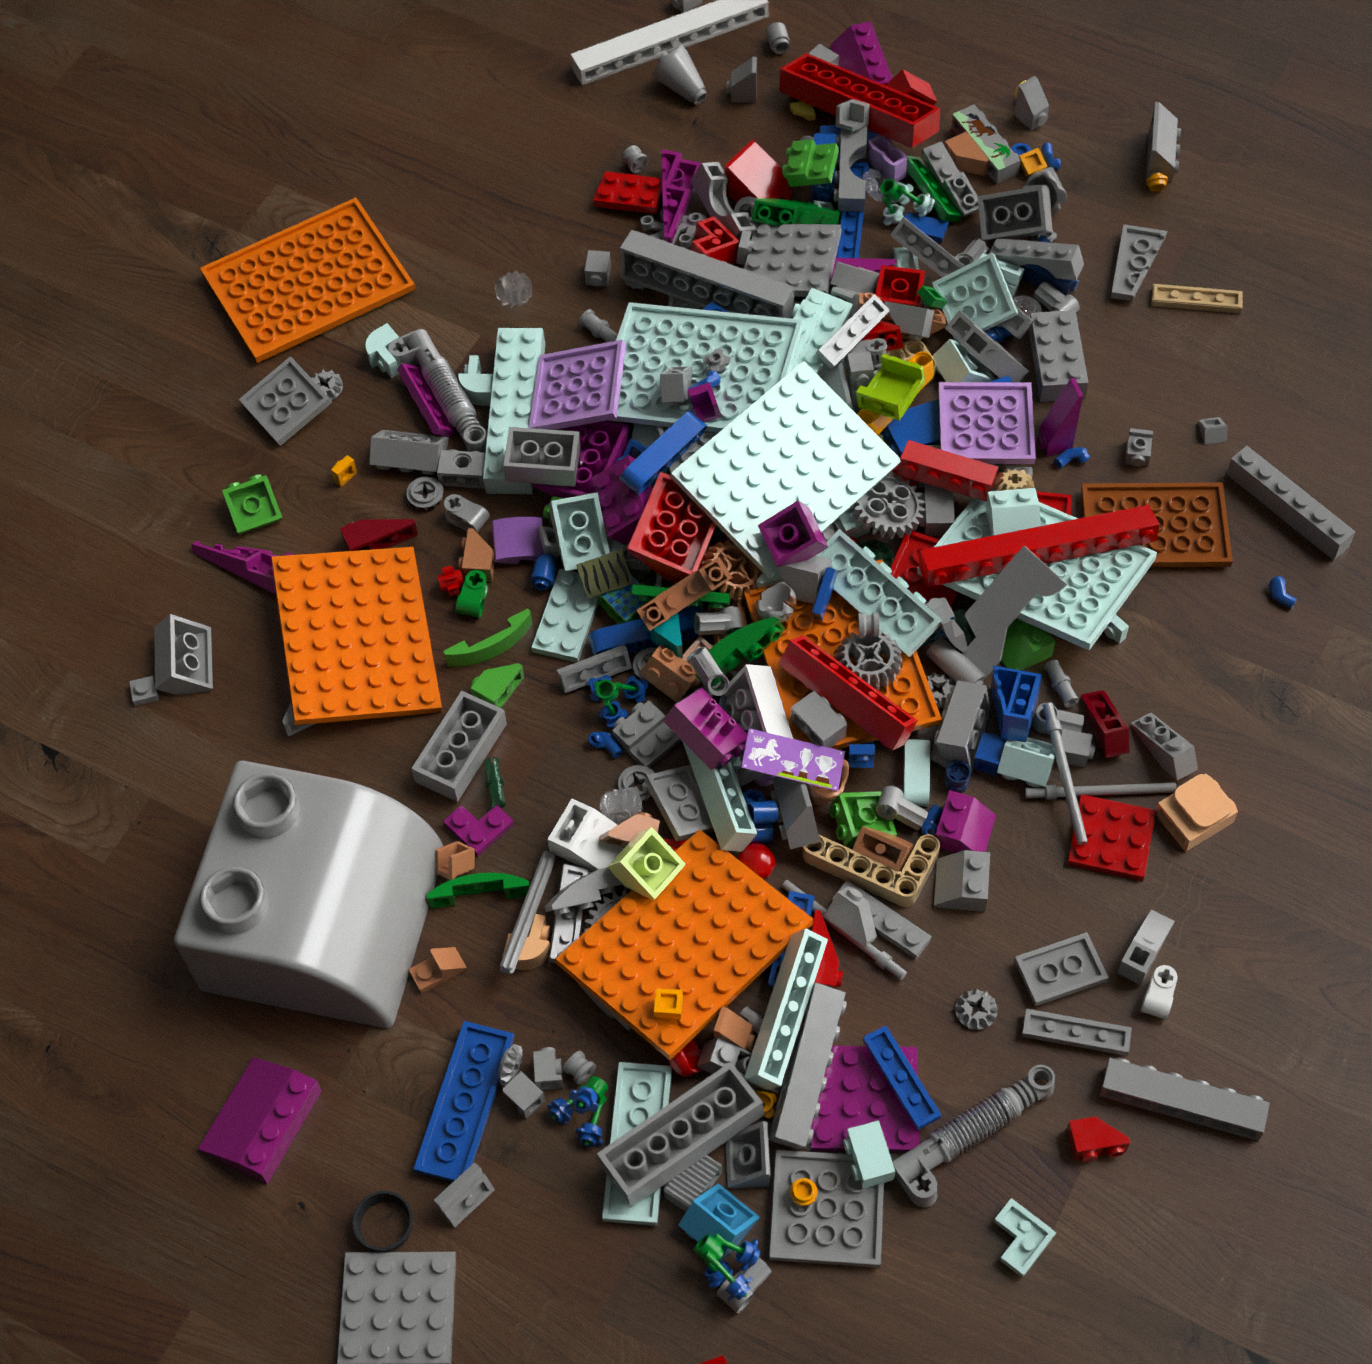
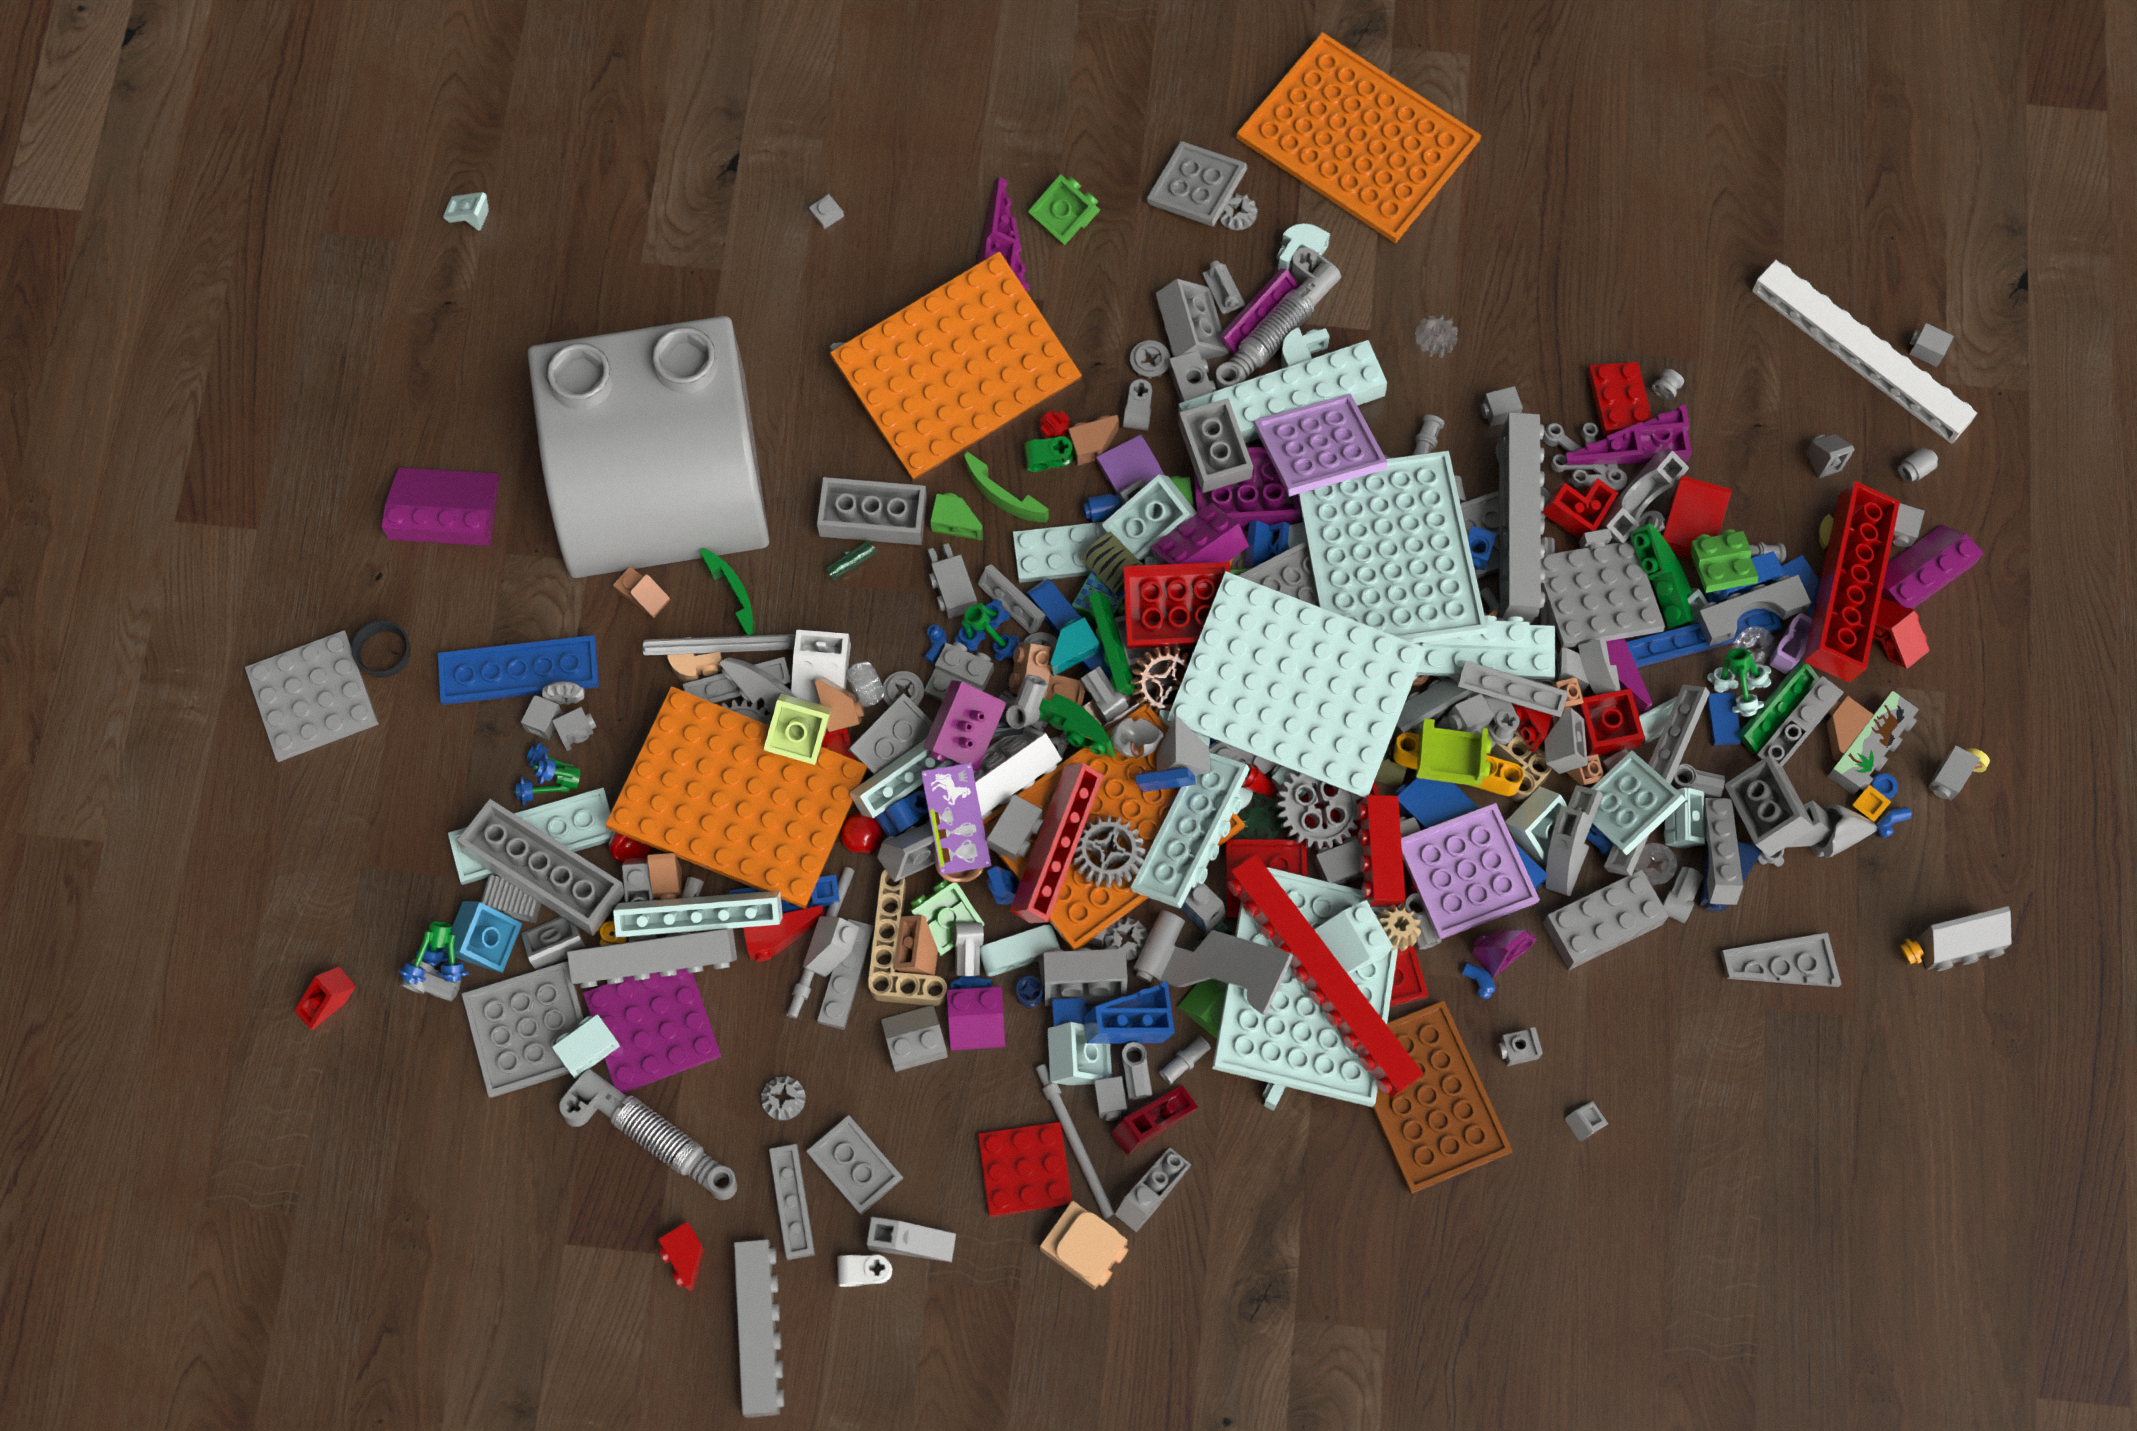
camera: 65 degrees right, 10 degrees up
(182, 656) = (872, 227): light grey slope -> none
(344, 470) = (1140, 273): light orange plate -> none
(377, 533) = (1075, 332): dark red slope -> none
(389, 419) = (1223, 288): none -> light grey hinge
(454, 860) = (751, 558): nougat window -> none
(464, 1195) = (426, 705): light grey plate -> none
(479, 833) = (793, 567): magenta plate -> none
(555, 709) = (952, 583): none -> light grey hinge
(579, 1067) = (586, 755): light grey wheel -> none
(663, 452) = (1256, 556): blue beam -> none
(668, 1003) = (652, 801): light orange plate -> none
(675, 384) = (1352, 535): light grey slope -> none
(680, 75) = (1805, 384): light grey cone -> none
(684, 593) = (1074, 626): nougat slope -> none
(704, 402) = (1339, 574): magenta panel -> none
(712, 377) = (1370, 569): blue arm -> none
(720, 363) = (1395, 569): light grey plate -> none
(793, 535) = (1210, 720): magenta slope -> none
(803, 1192) = (530, 999): light orange plate -> none
(852, 115) = (1813, 580): light grey panel -> none
(868, 625) = (1135, 833): light grey wheel -> none
(901, 1078) = (675, 1048): blue plate -> none
(931, 297) = (1609, 756): green plate -> none
(951, 630) = (1184, 922): light grey slope -> none
(1029, 1233) = (568, 1223): light aqua plate -> none
(1053, 729) = (1115, 1065): light grey bar -> none
(1197, 298) = (1764, 1049): tan tile -> none
(1279, 594) = (1397, 1254): blue arm -> none
(1290, 503) = (1517, 1233): light grey brick -> none

